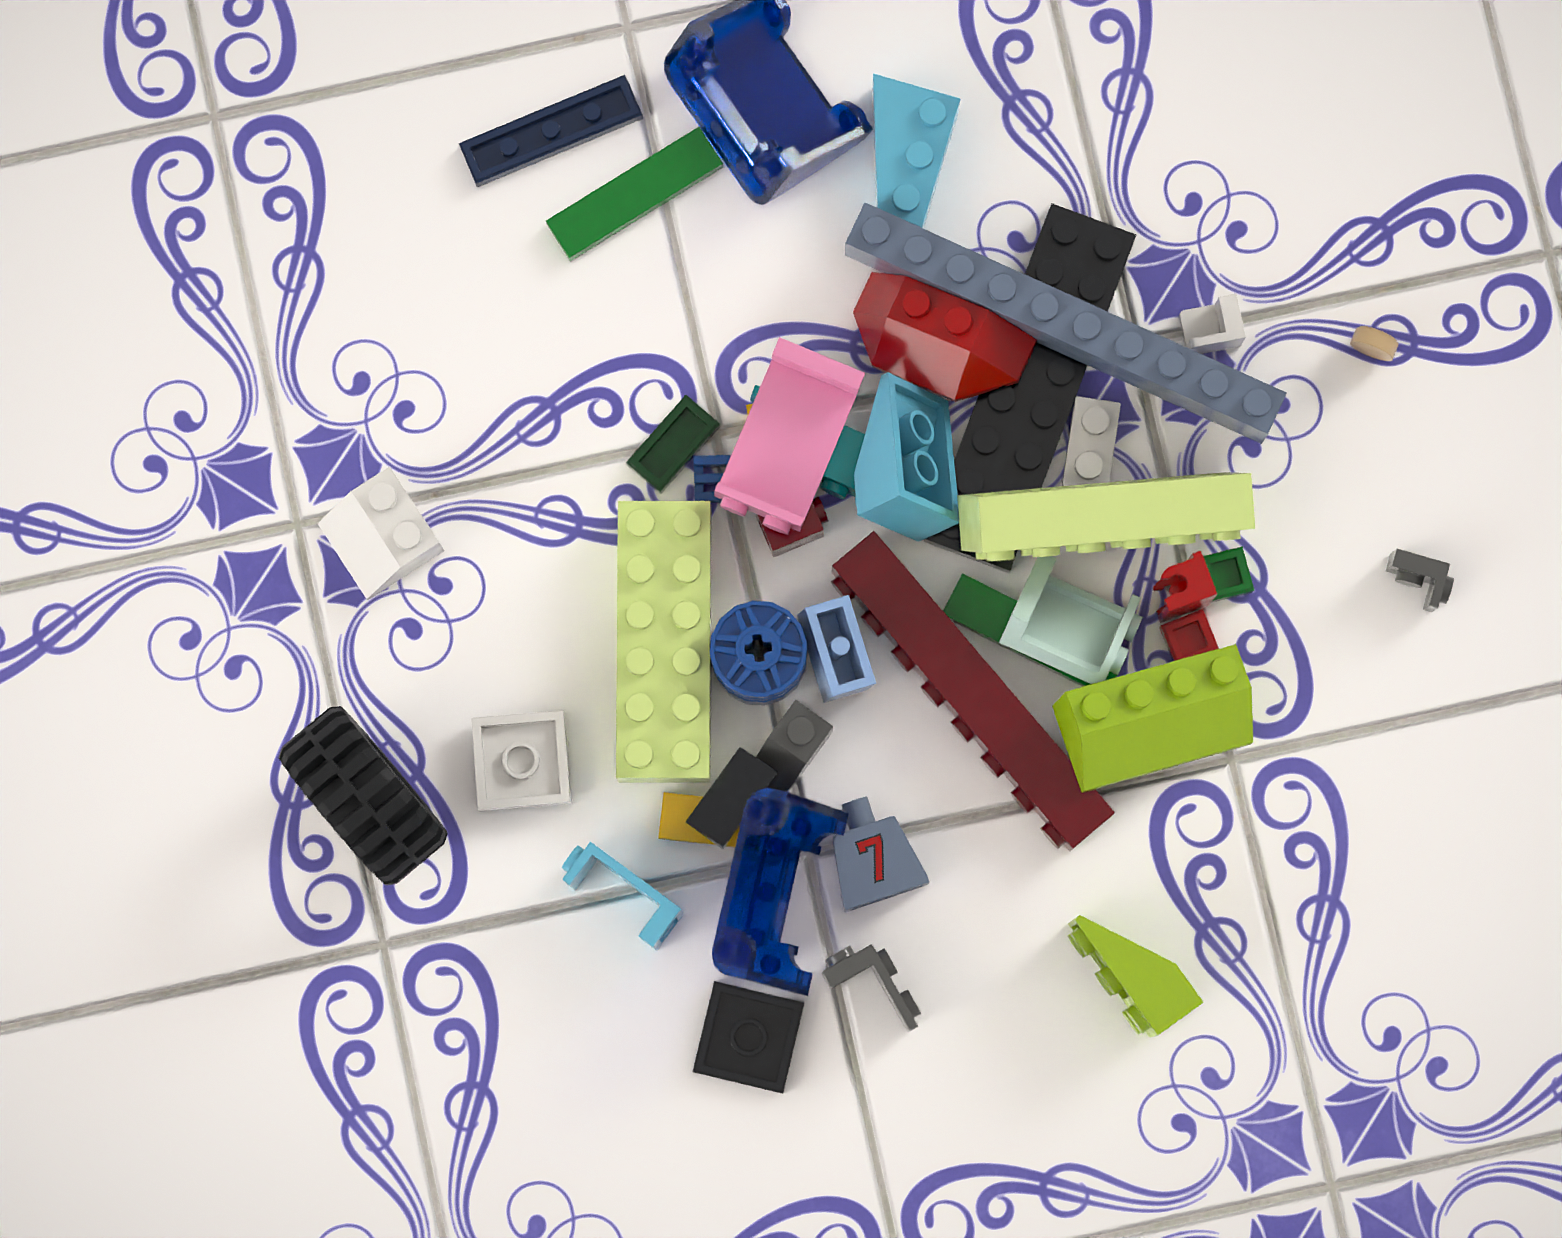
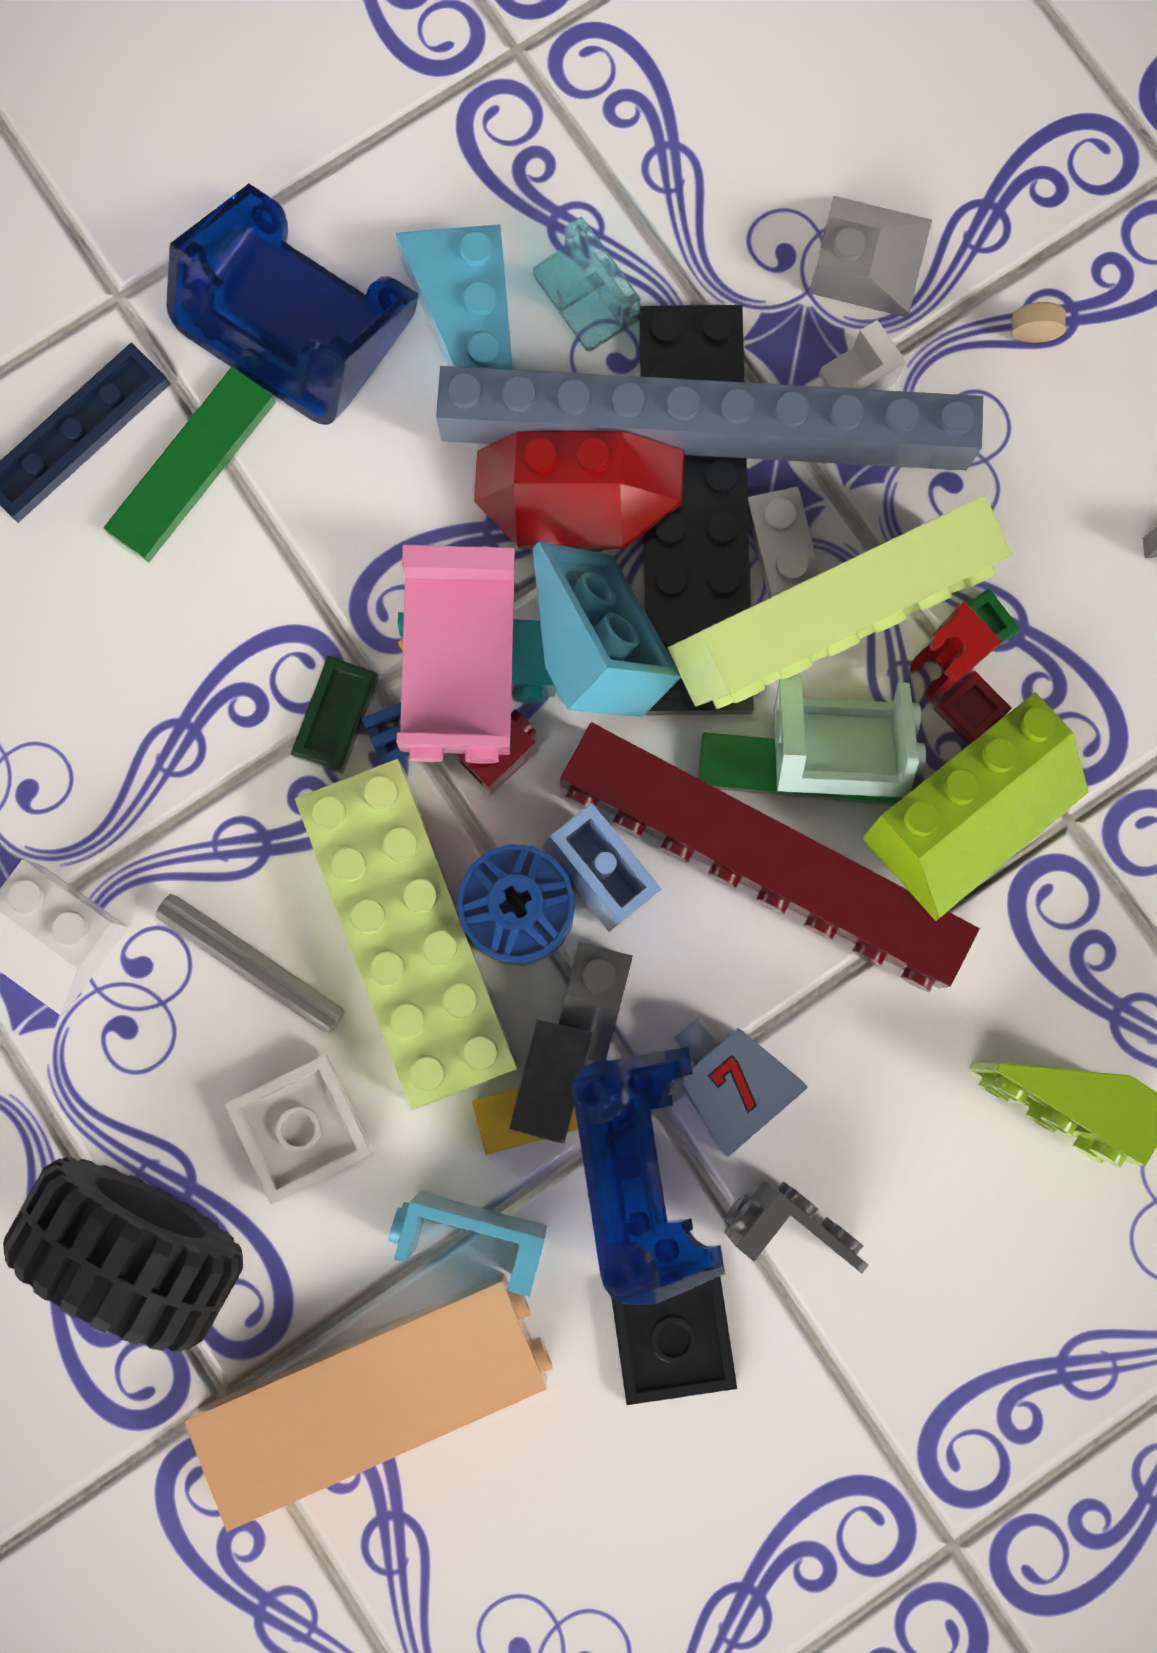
camera: 25 degrees left, 0 degrees up
(498, 986) = (368, 1401): none -> light nougat brick
(530, 616) = (250, 963): none -> light grey axle
(1014, 171) = (588, 287): none -> clear light blue panel
(1261, 231) = (870, 256): none -> light grey slope

